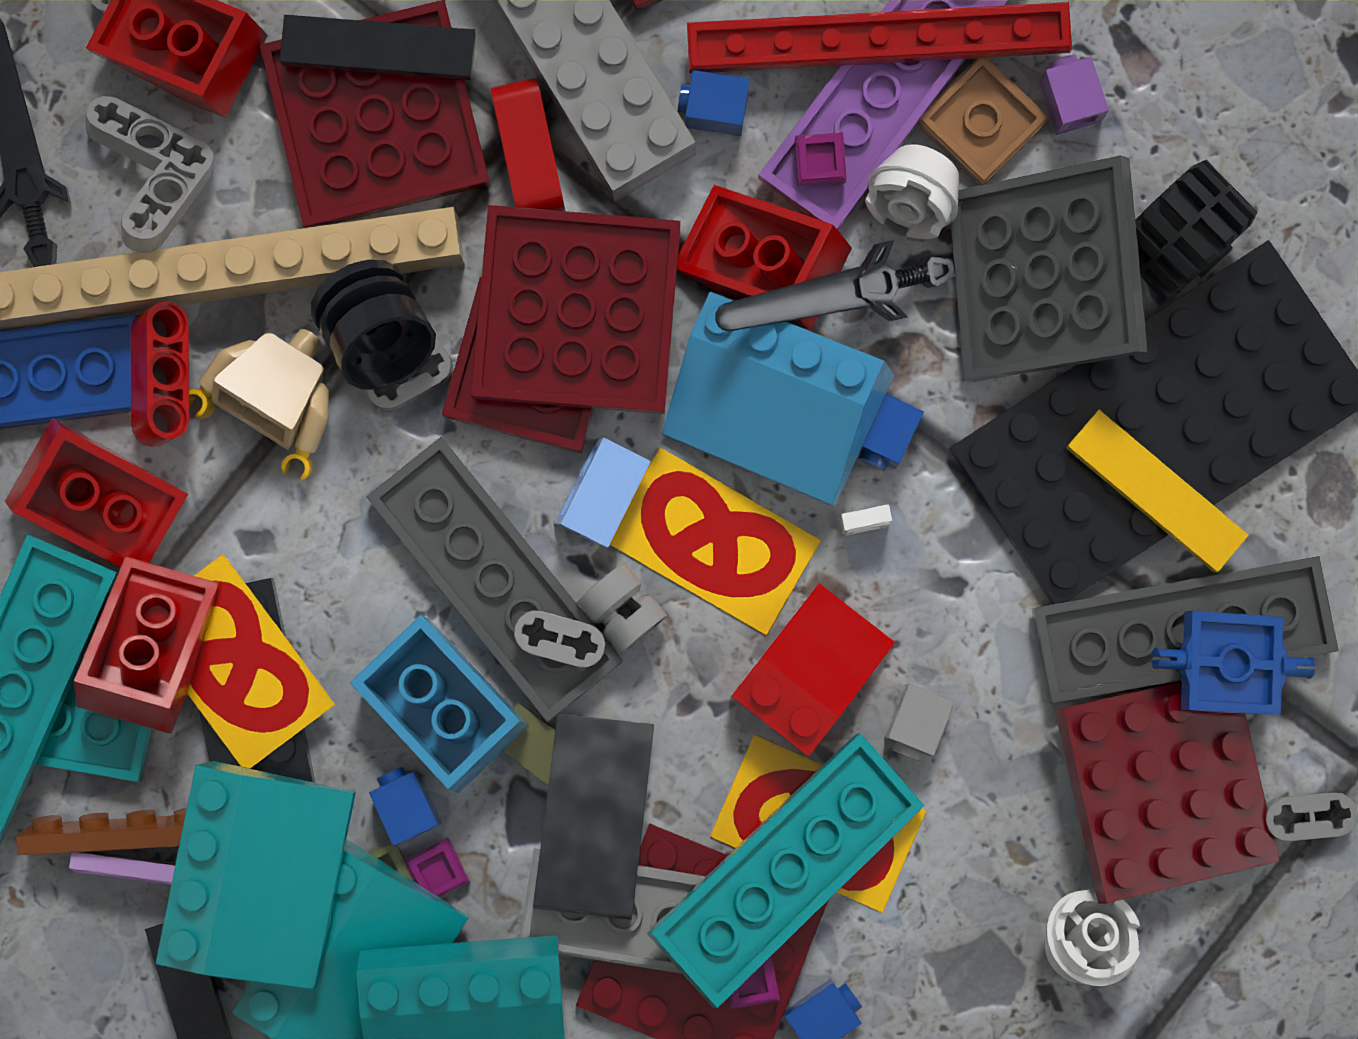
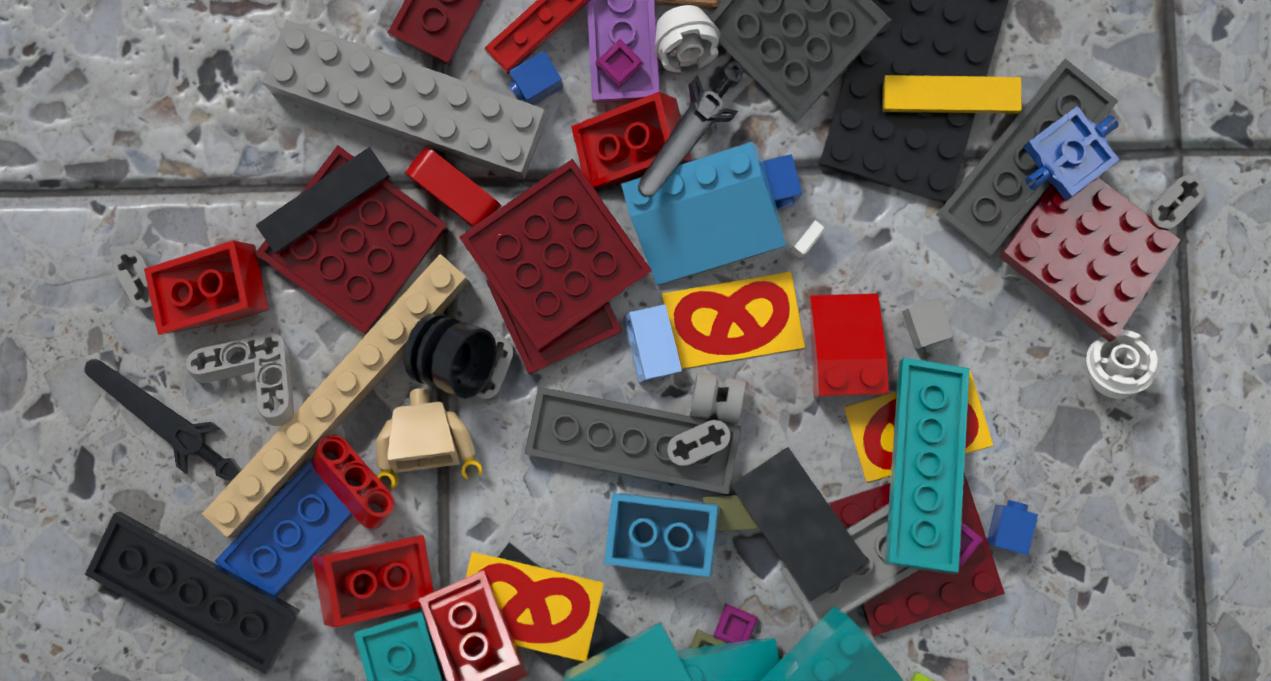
camera: 45 degrees left, 0 degrees up
(404, 805) = (688, 606): blue brick -> none

